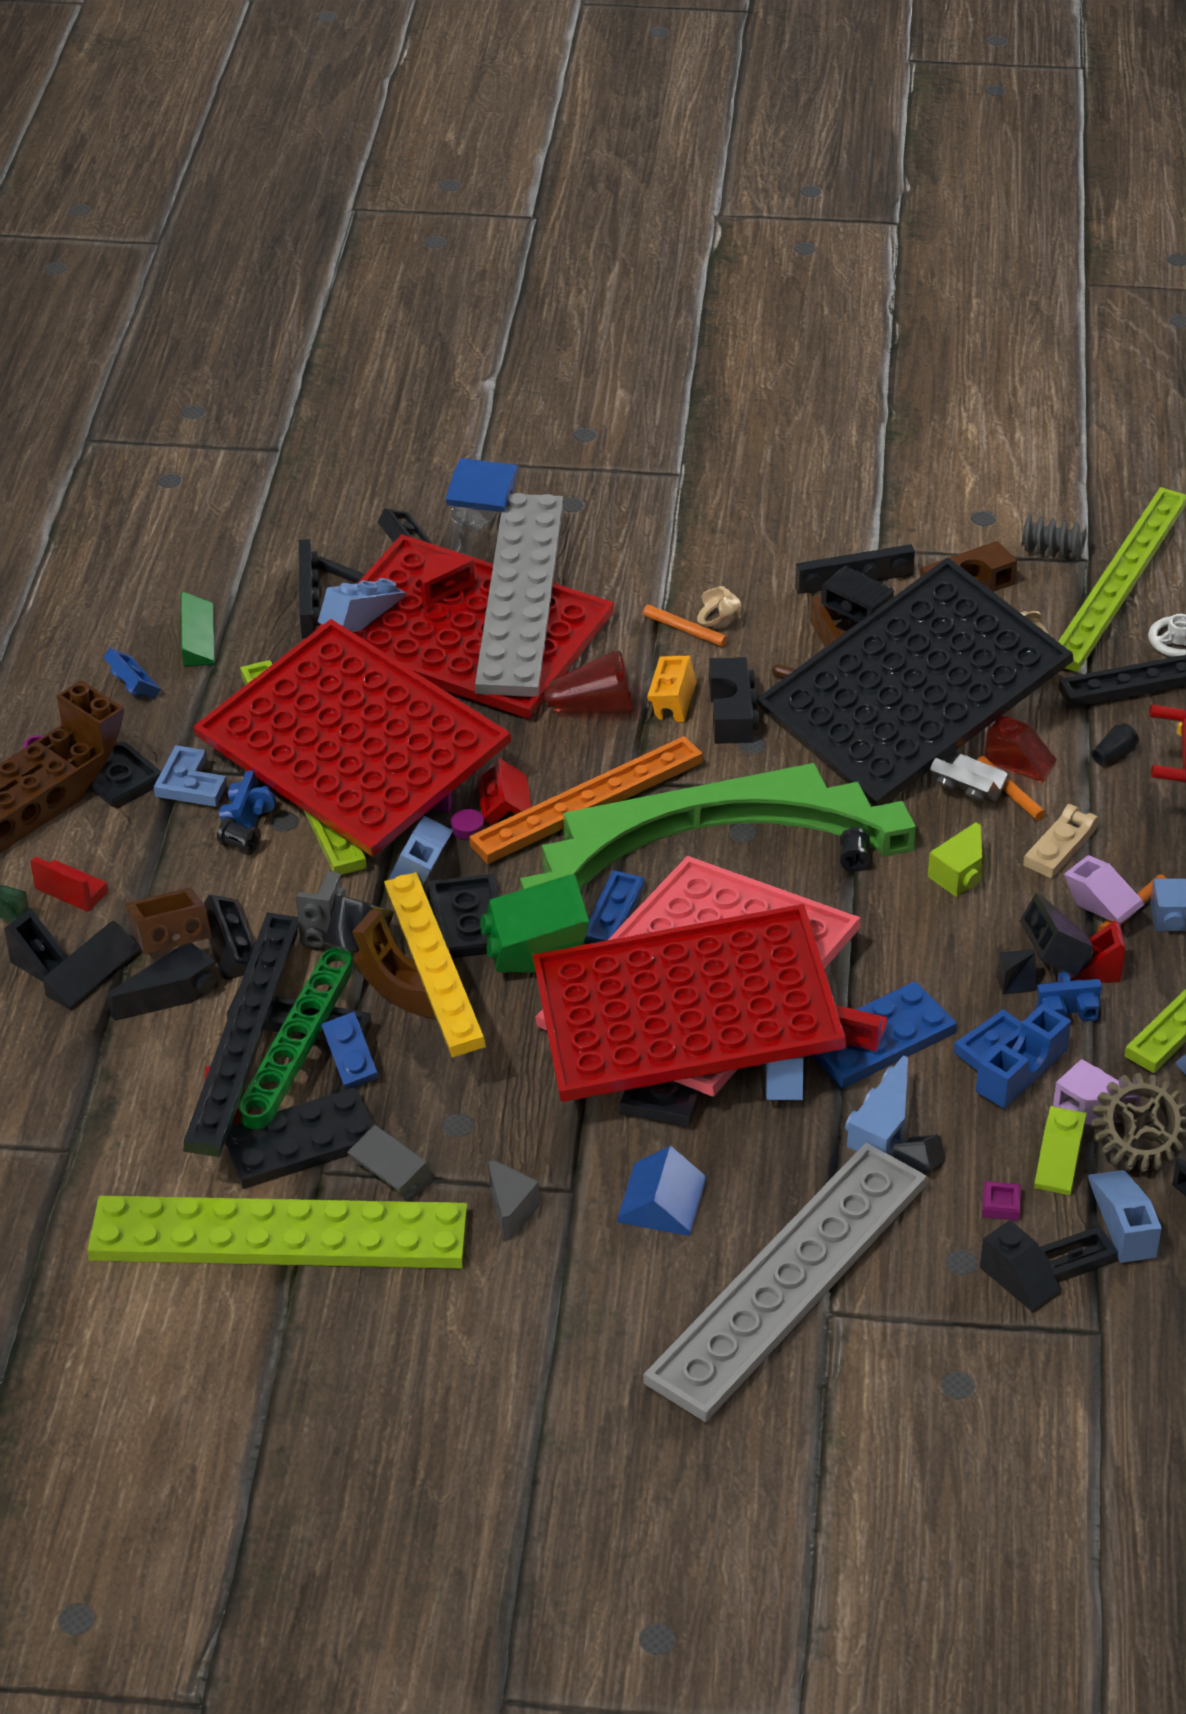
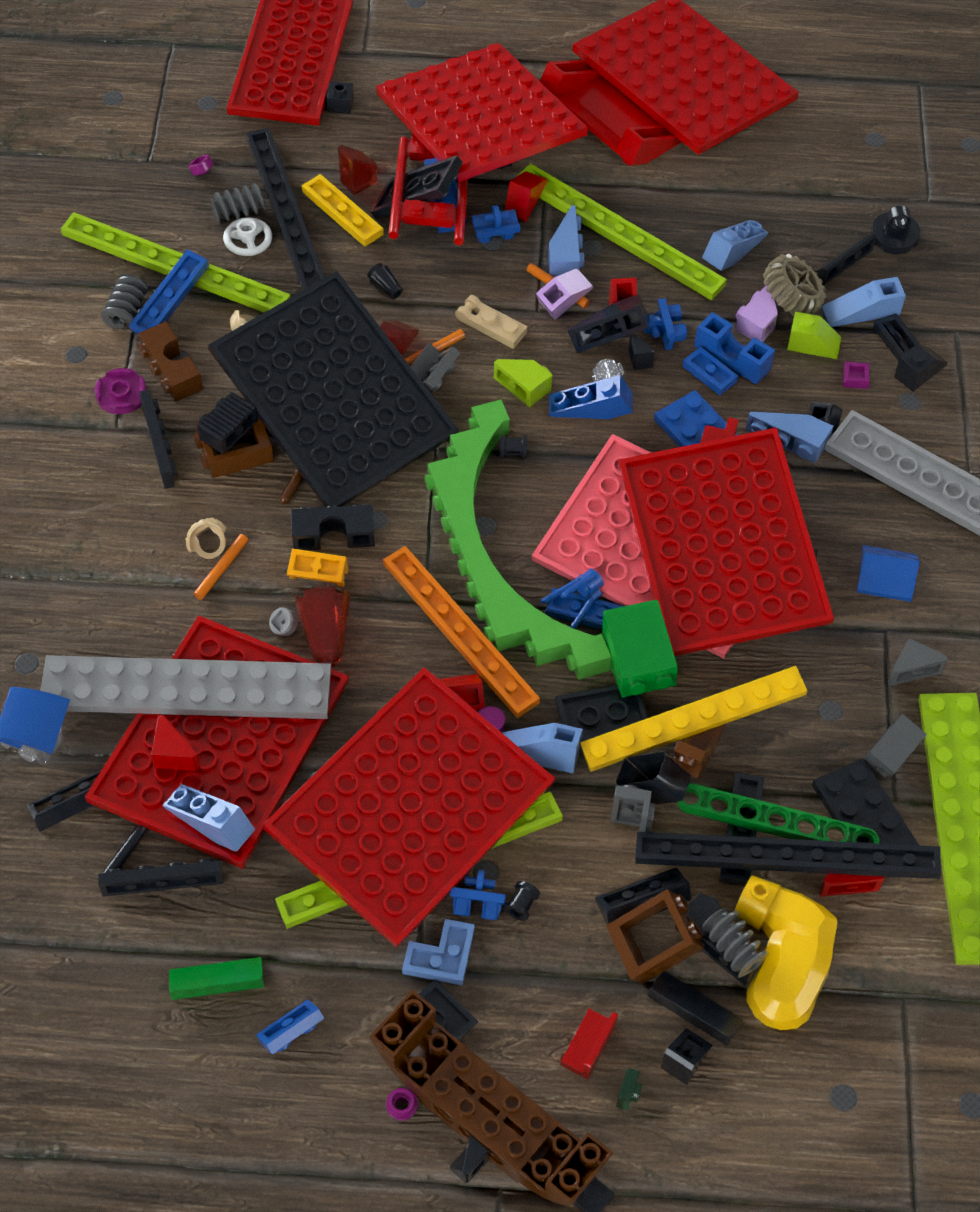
camera: 95 degrees left, 15 degrees up
(138, 965) = (734, 942): none -> dark grey piece
(141, 1047) = (797, 949): none -> yellow piece
(350, 1050) = (780, 783): blue plate -> none
(634, 890) = (586, 585): none -> blue plant
(930, 545) = (119, 391): none -> magenta tile
(931, 923) = (594, 400): none -> blue slope
(973, 935) = (607, 368): none -> clear gear
(1067, 567) = (170, 292): none -> blue plate

